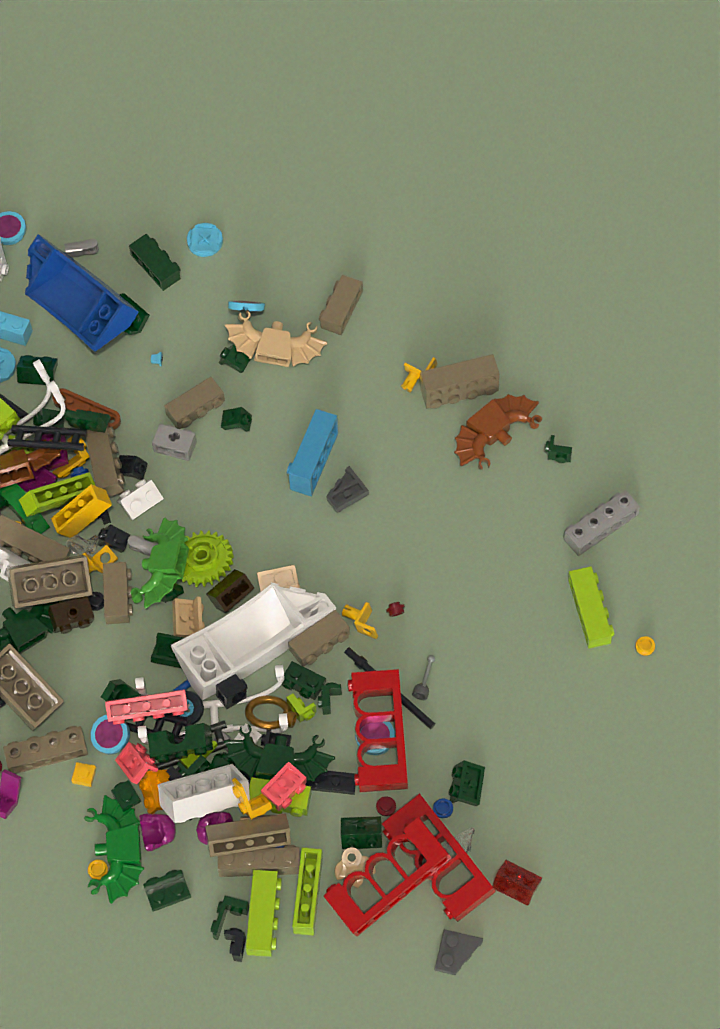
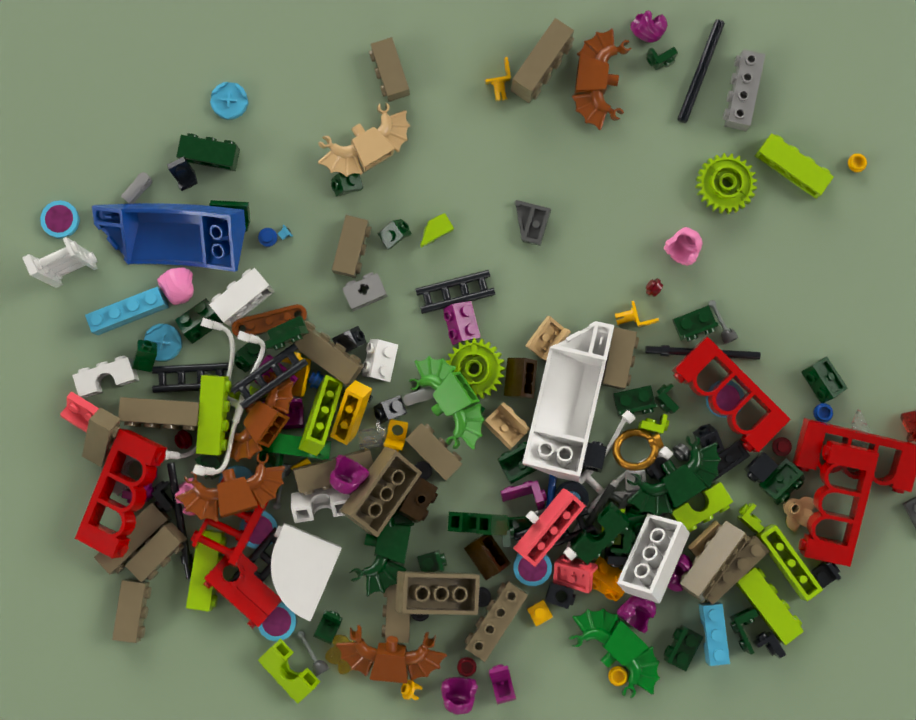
camera: 45 degrees left, 20 degrees up
(35, 548) = (347, 475): none -> magenta hair
(43, 667) = (432, 562): none -> dark green bracket
(45, 332) = (177, 285): none -> bright pink hair
(51, 724) = (484, 597): none -> black plate
(82, 373) = (241, 297): none -> white brick
(83, 696) = (487, 556): none -> dark brown brick
(96, 662) = (478, 523): none -> dark green arch
(106, 764) = (551, 595): none -> black brick
(123, 261) = (183, 173): none -> black bracket
(125, 795) = (589, 605): dark green bracket -> none
(141, 351) = (267, 237): none -> blue plate
(157, 674) = (526, 488): none -> magenta bracket
(192, 905) = (715, 634): none -> medium azure arch
(226, 518) = (461, 322): none -> bracket
(246, 305) = (316, 131): medium azure tile -> none
(247, 505) = (444, 287): none -> black bar
(254, 807) = (699, 535): yellow bracket -> none
(269, 439) = (436, 228): none -> lime slope
(284, 786) = (709, 501): coral bracket -> none
(302, 743) = (681, 452): none -> dark grey plate
(309, 829) = (750, 521): none -> lime bracket
(313, 453) = (483, 212): dark azure brick -> none
(328, 929) = (826, 573): none -> black bracket
(335, 749) = (708, 436): none -> black bracket
(353, 805) = (760, 467): none -> black brick
(408, 662) = (695, 323): none -> dark green bracket
(446, 595) = (684, 246): none -> bright pink hair
(527, 565) = (735, 173): none -> lime gear
(566, 422) = (649, 29): none -> magenta hair
(581, 485) = (701, 71): none -> black axle

